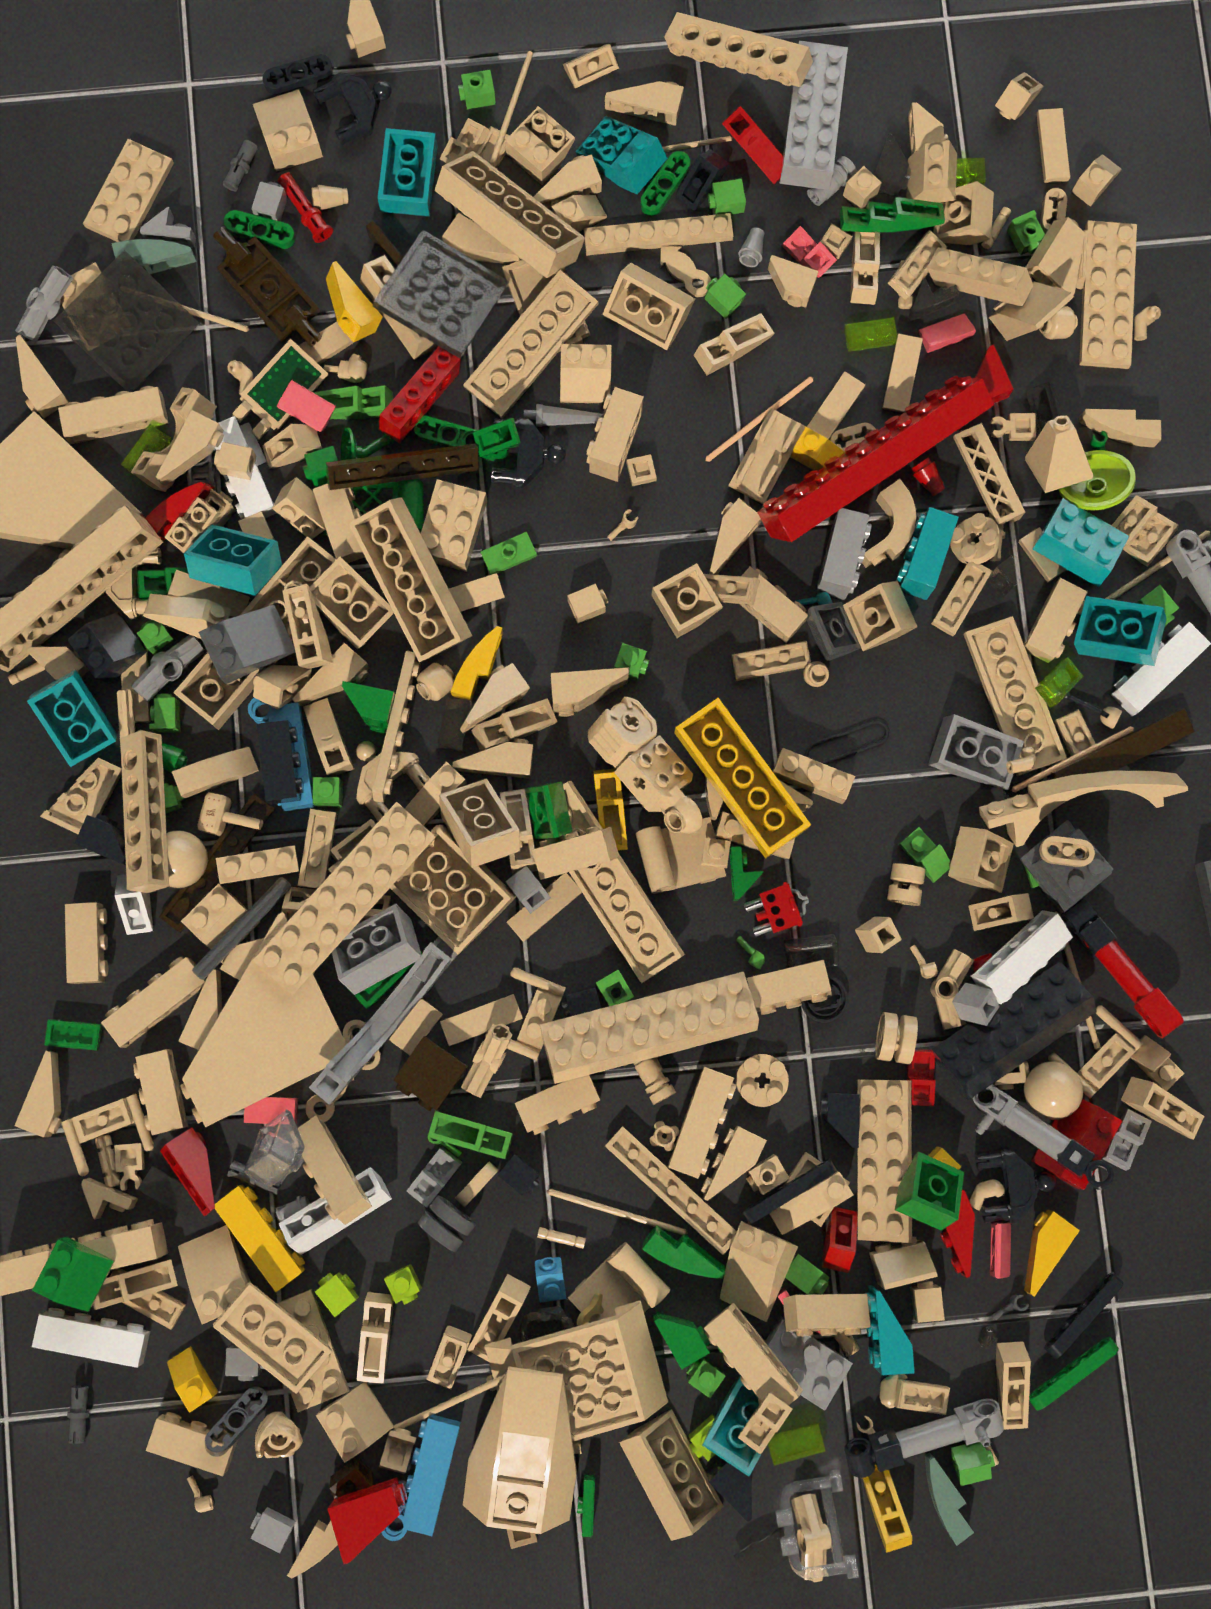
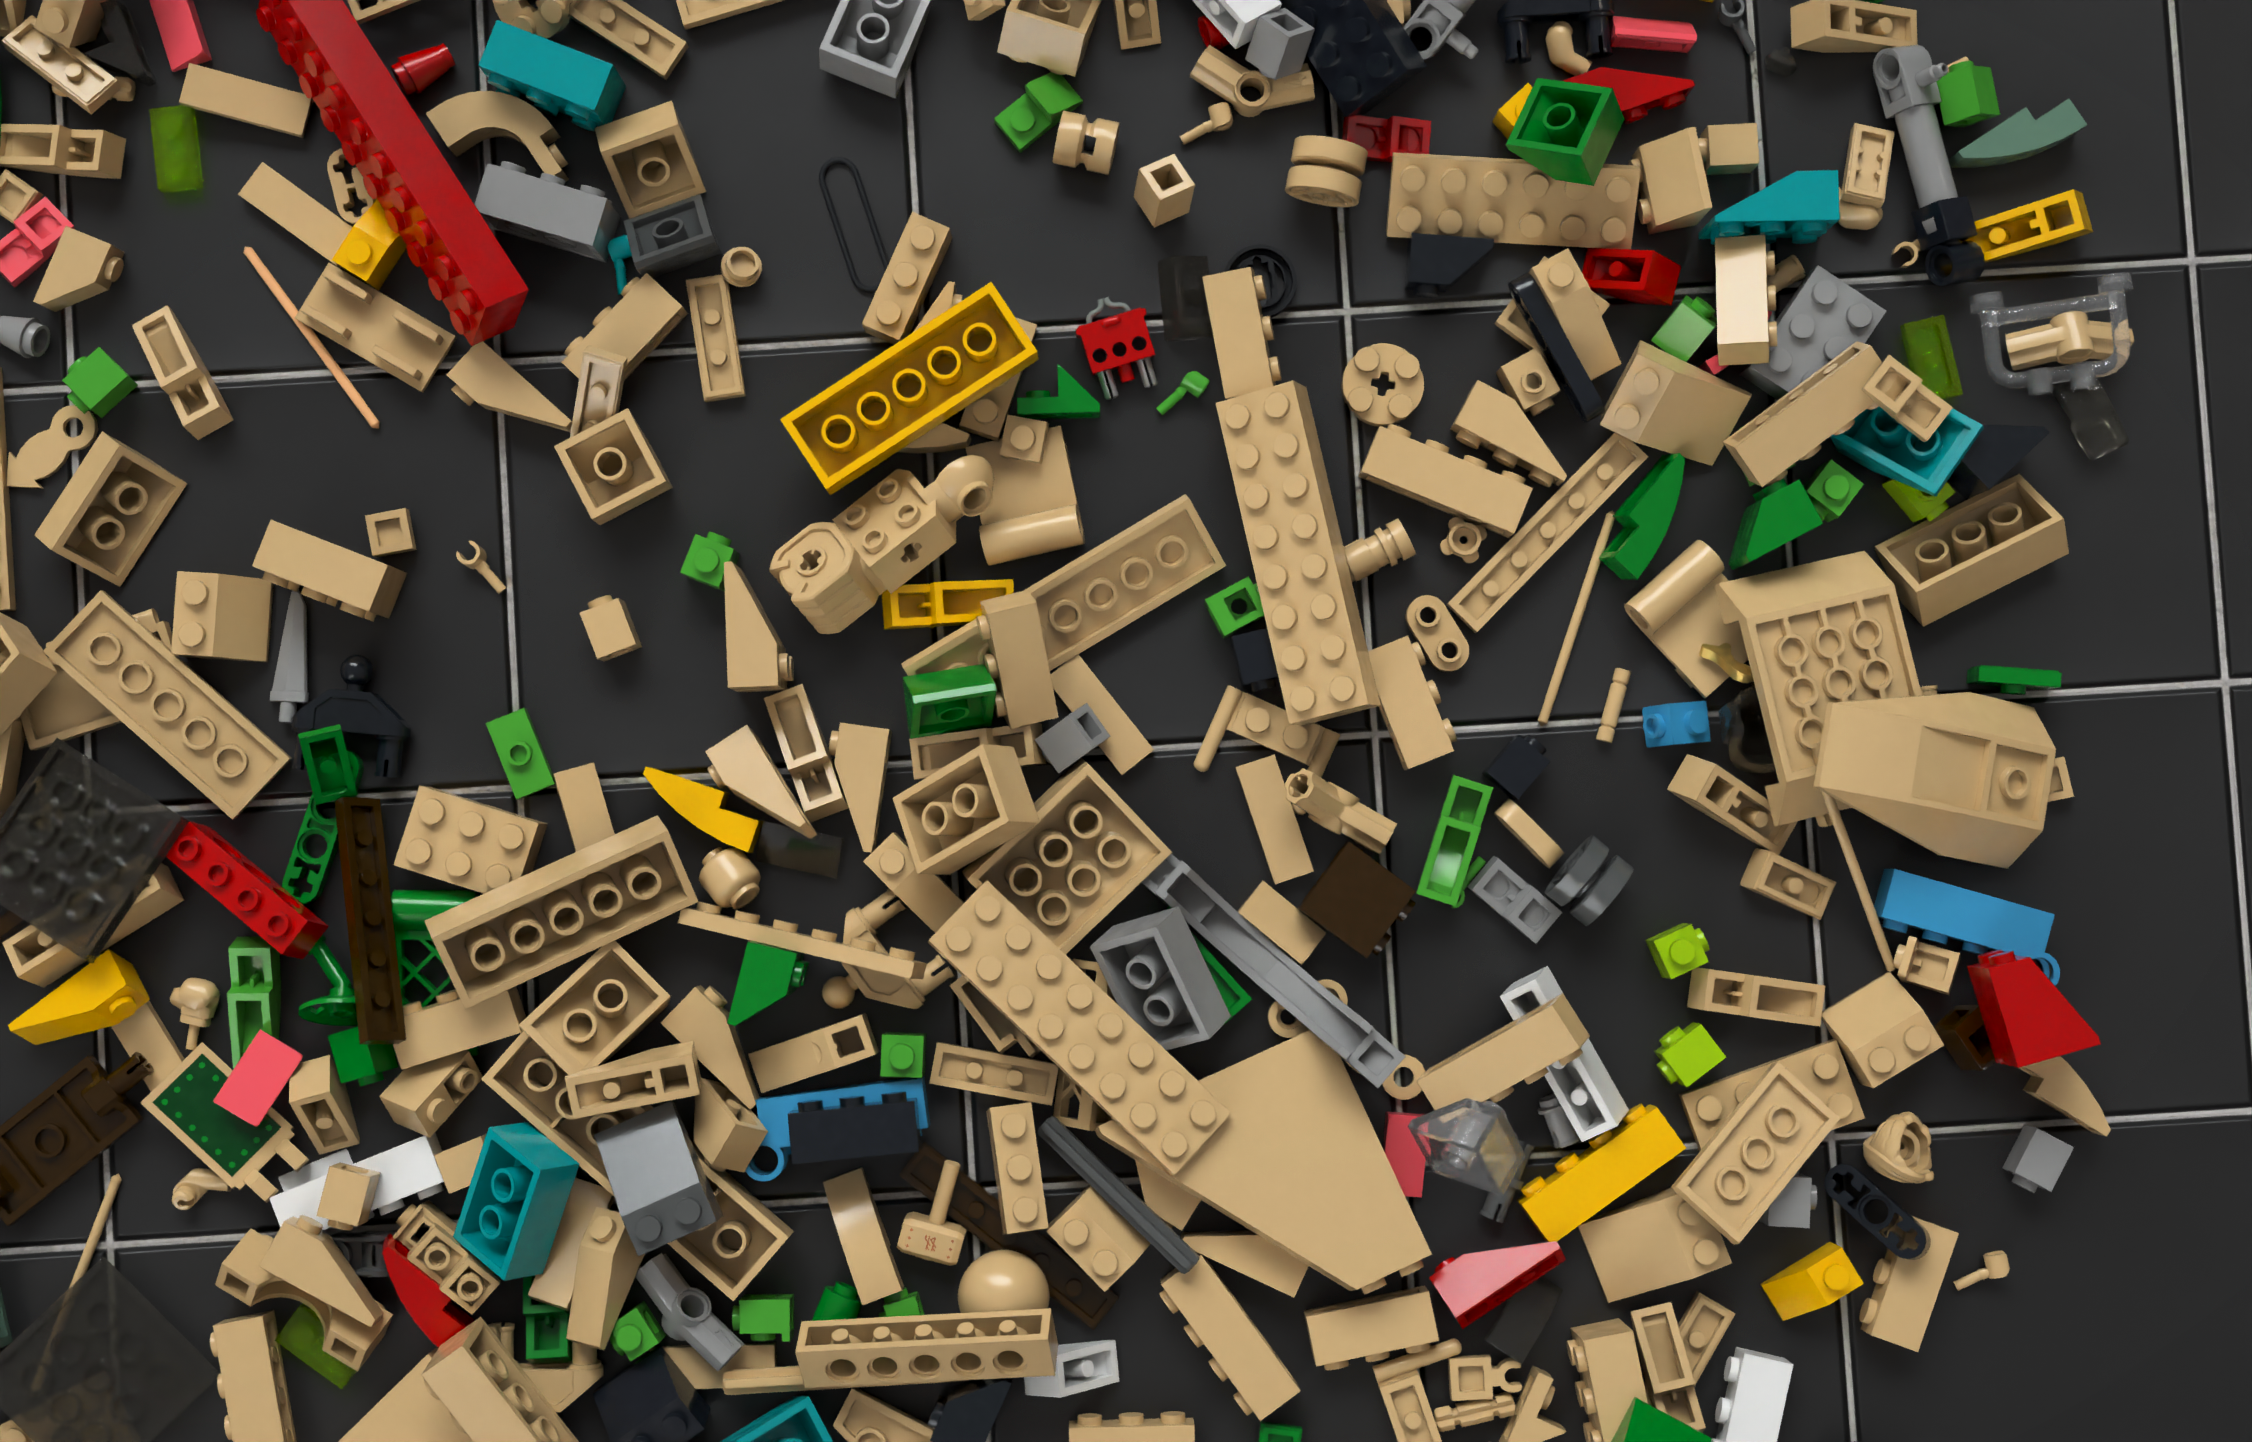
camera: 90 degrees left, 5 degrees up
(603, 1121) = (1437, 633): none -> tan plate

